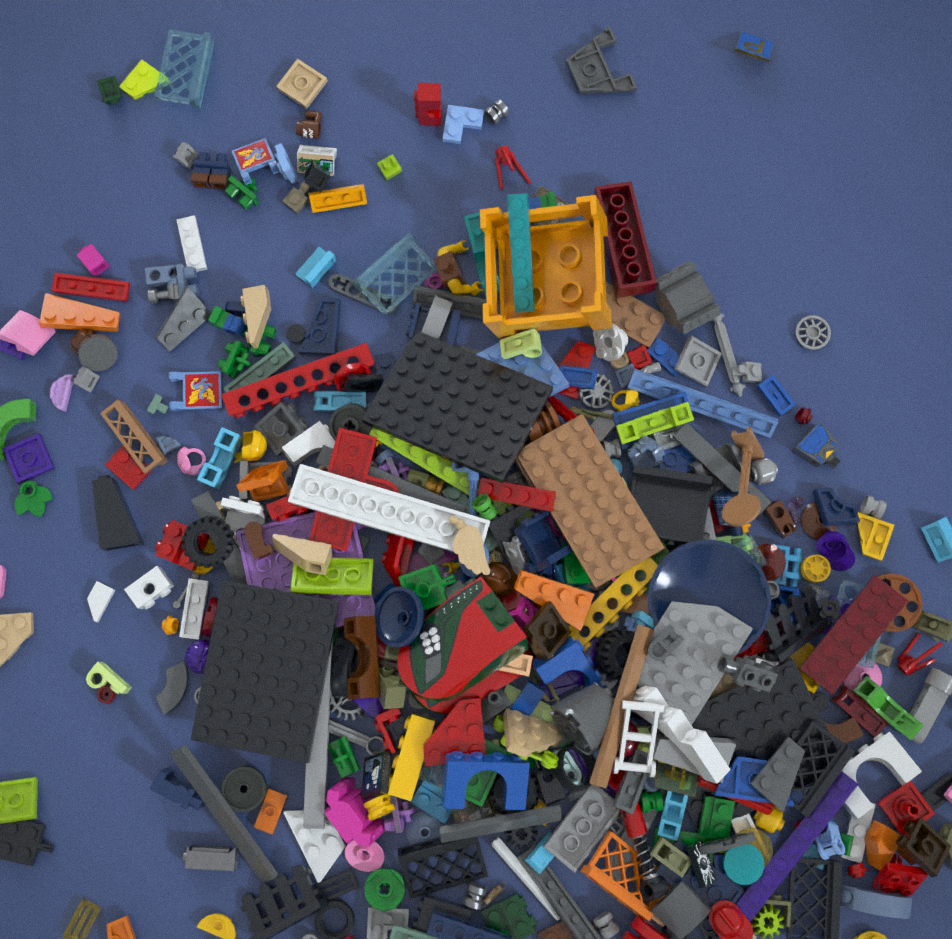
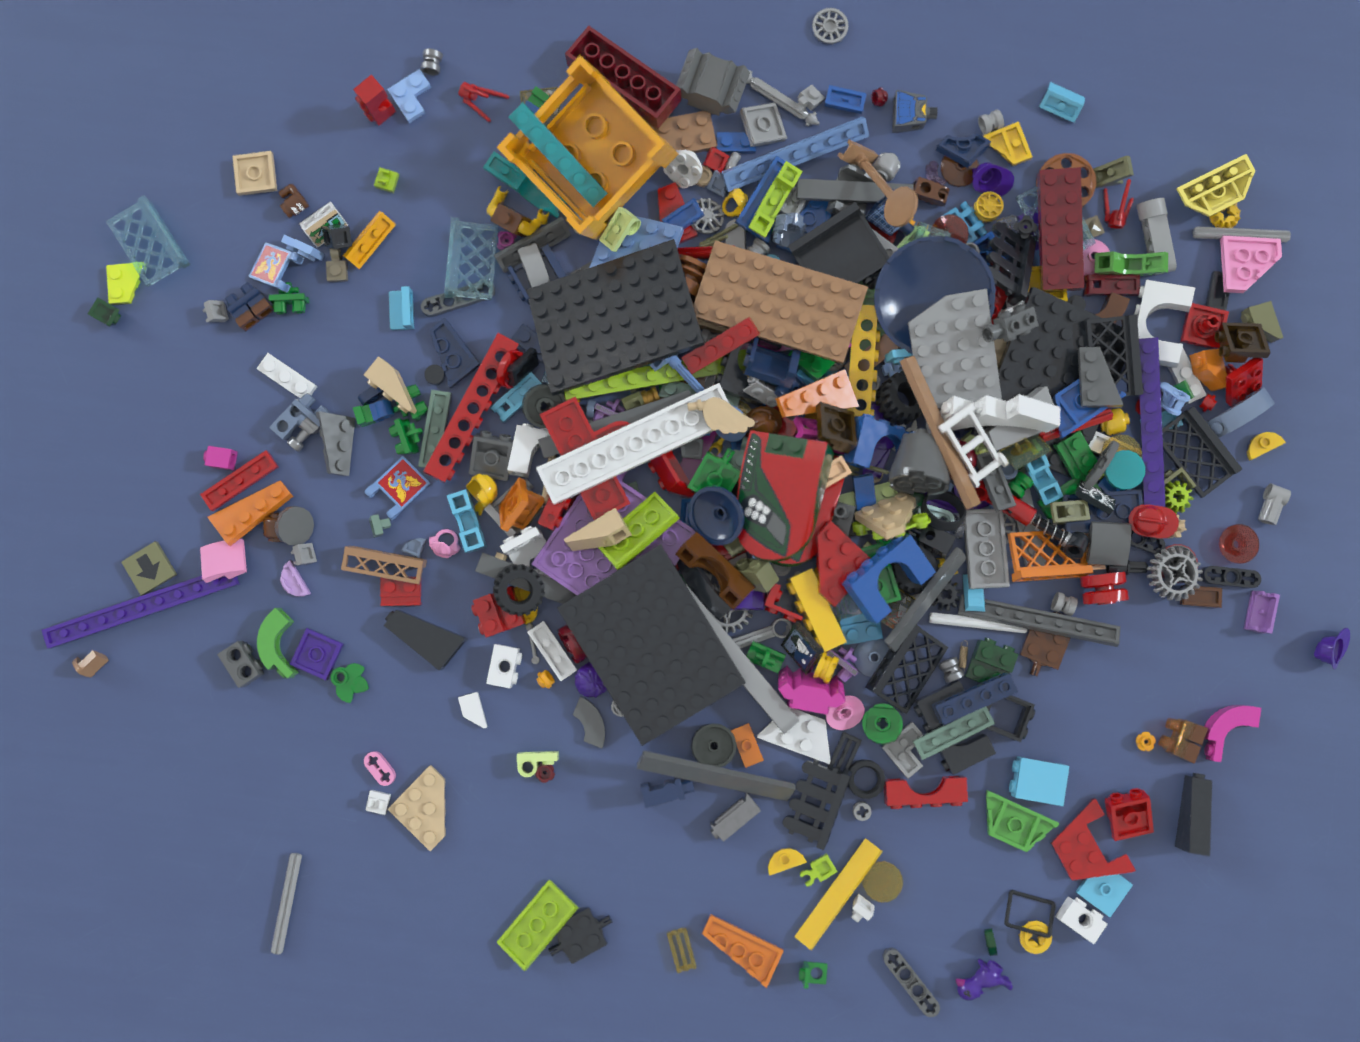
camera: 40 degrees left, 5 degrees up
(254, 534) = (548, 553): reddish brown leg -> none
(484, 506) = (704, 376): bright green wheel -> none
(659, 649) = (931, 365): dark grey plate -> none

